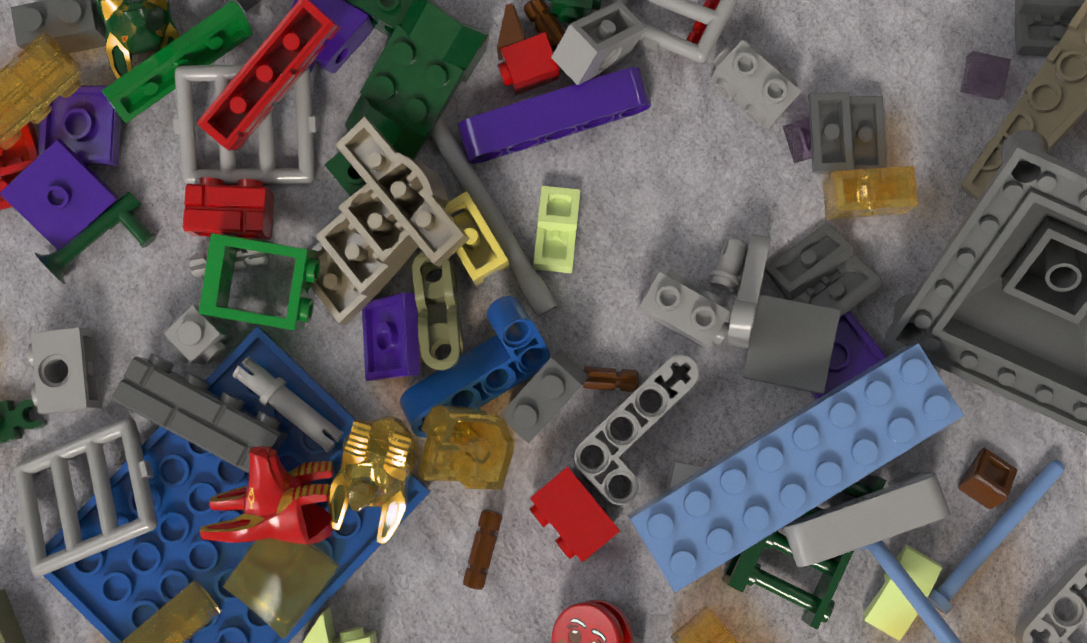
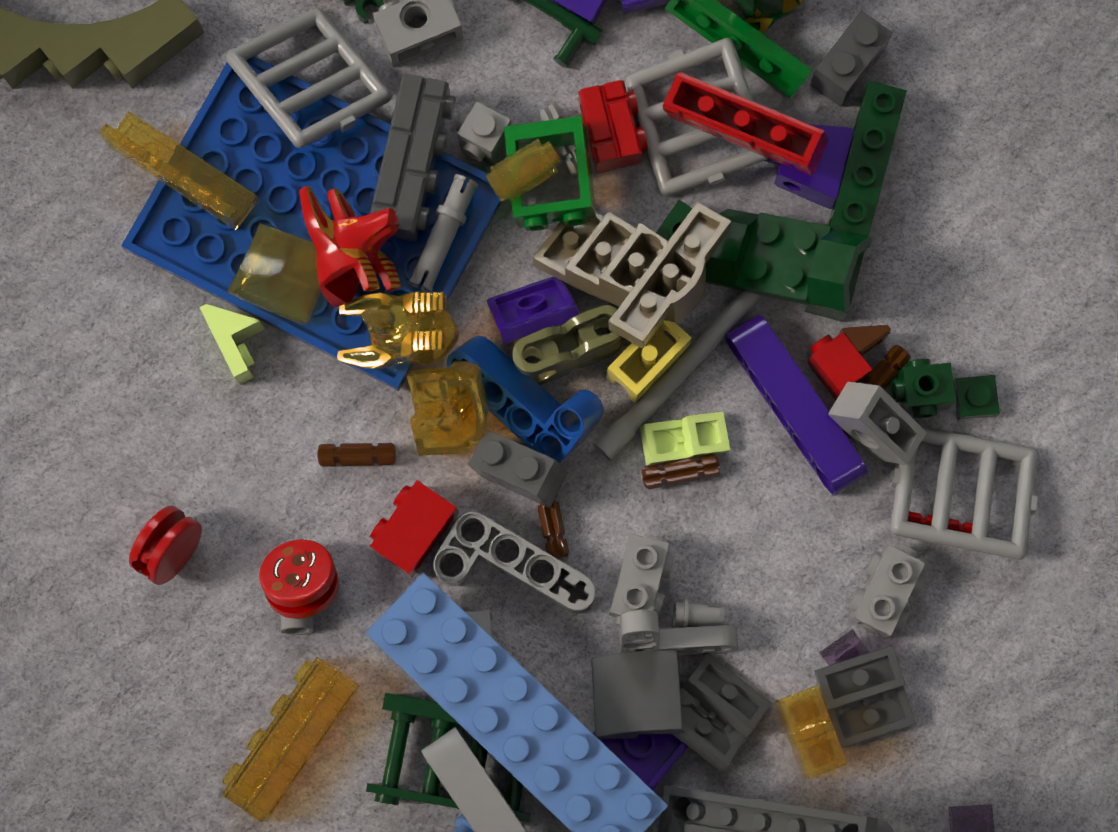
camera: 75 degrees right, 5 degrees down
(250, 305) = (523, 170): none -> clear yellow head
(587, 242) = (680, 471): none -> reddish brown axle

